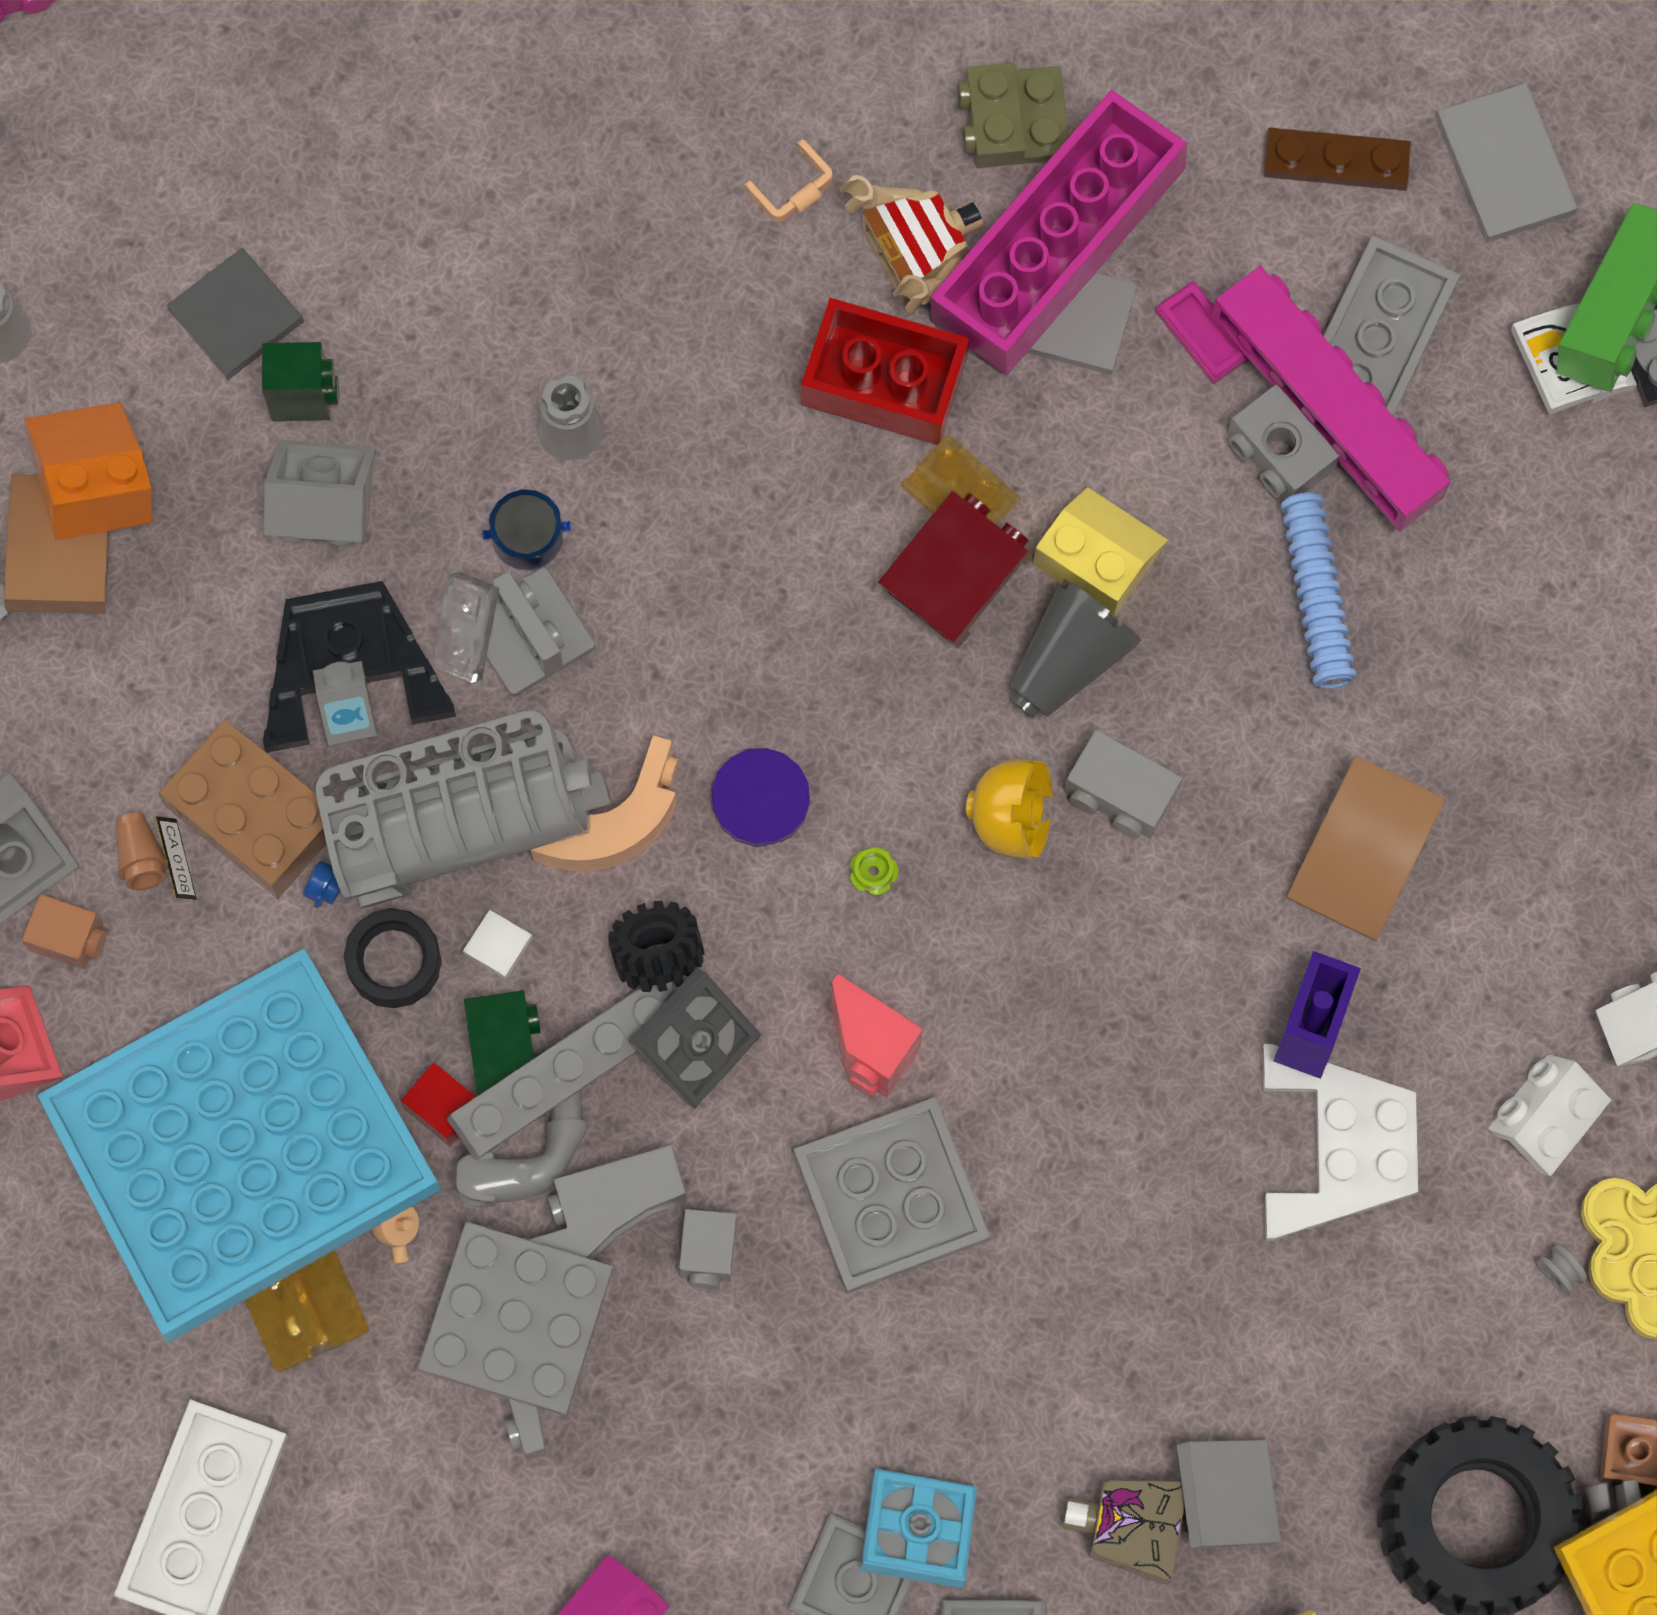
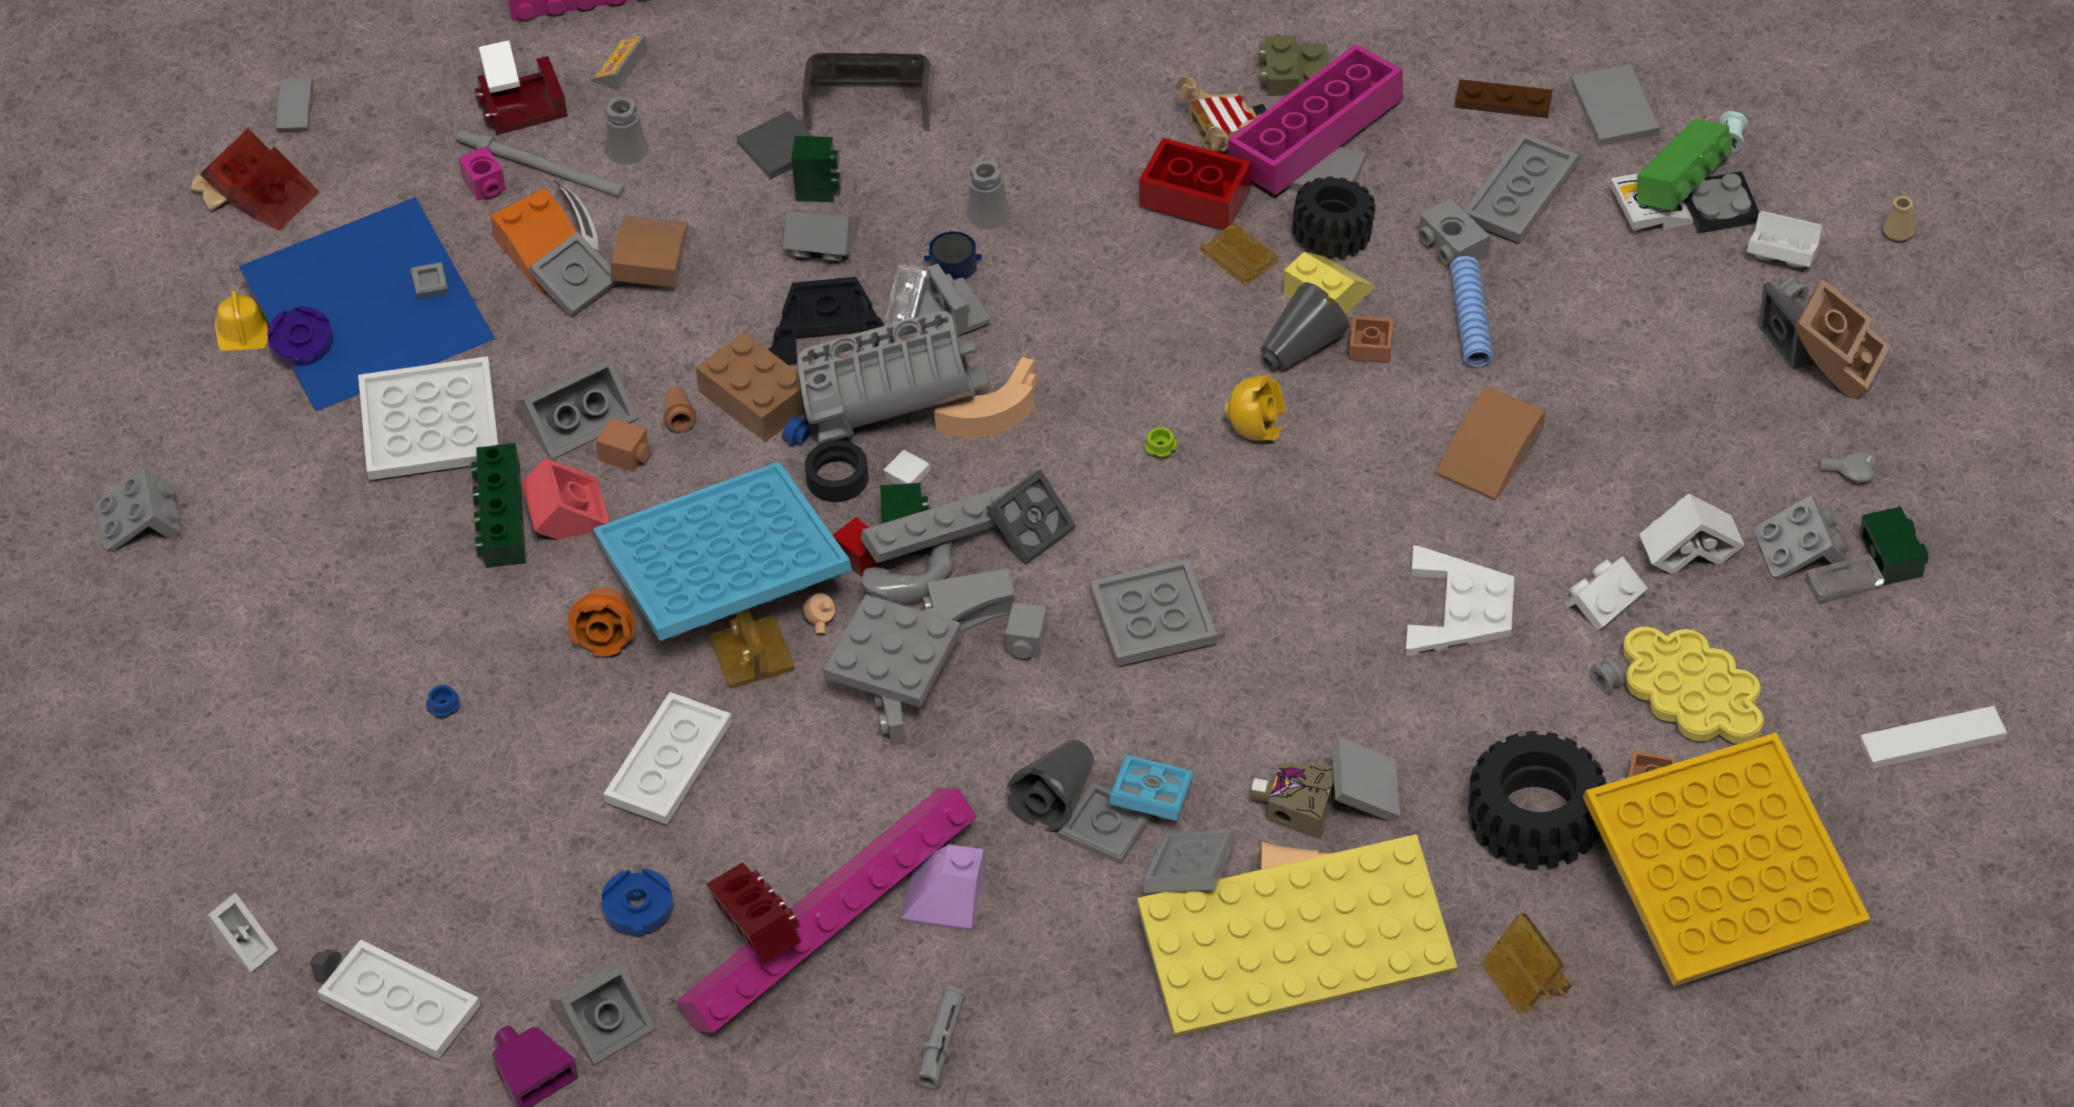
camera: 10 degrees right, 25 degrees down
(74, 1279) = (602, 621): none -> orange cone
(90, 470) = (676, 211): orange slope -> none
(176, 858) = (701, 413): sticker -> none
(344, 702) = (821, 326): light grey brick -> none
(419, 157) = (868, 71): none -> clear smoke windscreen
(651, 927) = (1009, 466): black tyre -> none
(760, 797) = (1090, 403): dark purple tile -> none
(777, 1531) = (1051, 785): none -> dark grey cone
(804, 197) = (1150, 105): light nougat piece -> none
(873, 1038) = (1151, 518): coral slope -> none
(955, 566) = (1229, 283): dark red panel -> none
(1094, 459) = (1333, 216): none -> black tyre
(1122, 786) = (1331, 403): light grey brick -> none
(1173, 653) = (1371, 339): none -> nougat piece
(1190, 321) = (1407, 181): dark pink tile -> none
(1317, 1015) = (1448, 522): dark purple brick -> none
(1321, 383) = (1510, 226): dark pink brick -> none

